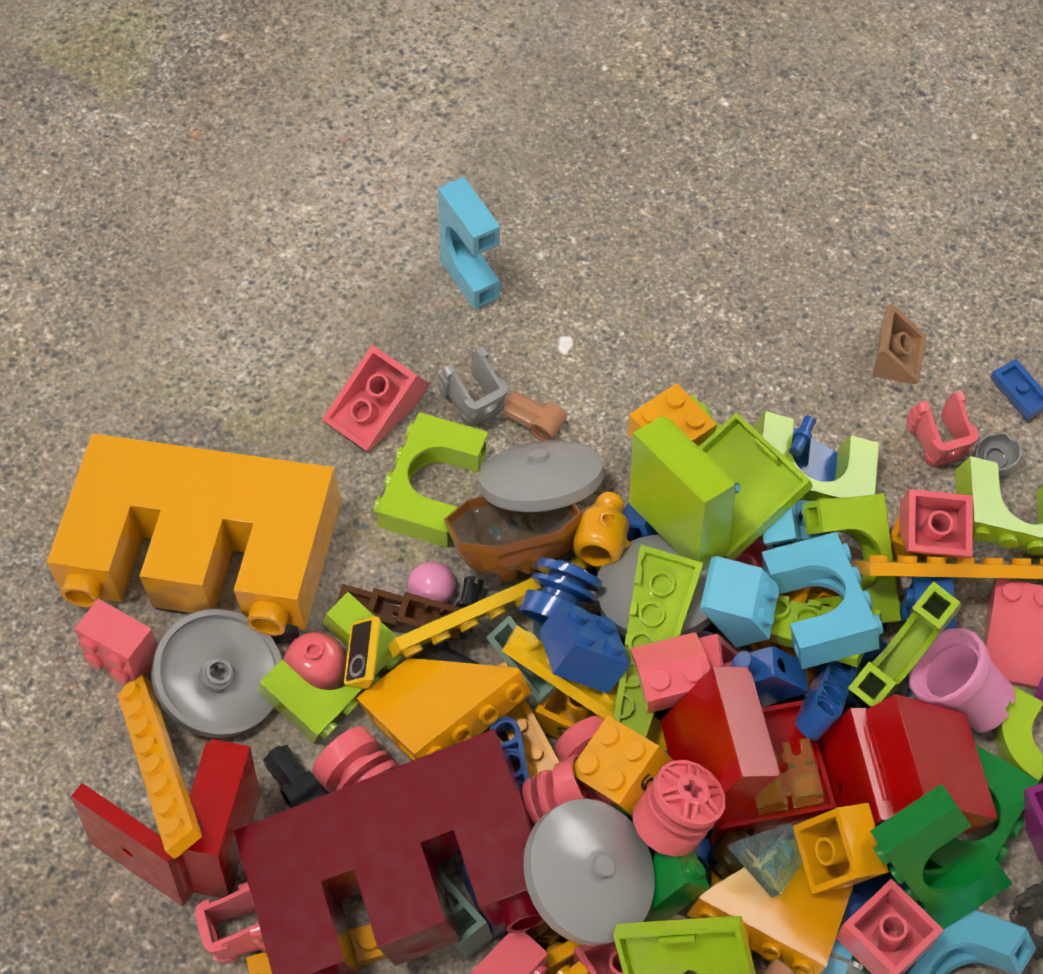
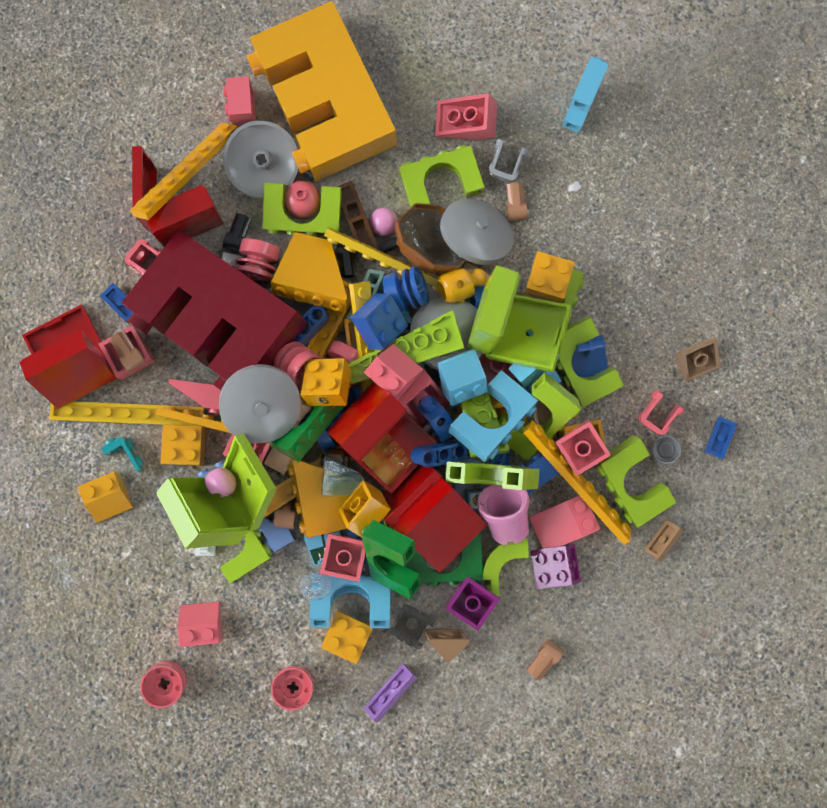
camera: 55 degrees right, 25 degrees up
(362, 652) = (314, 218): slope -> none
(678, 808) = (306, 424): coral wheel -> none

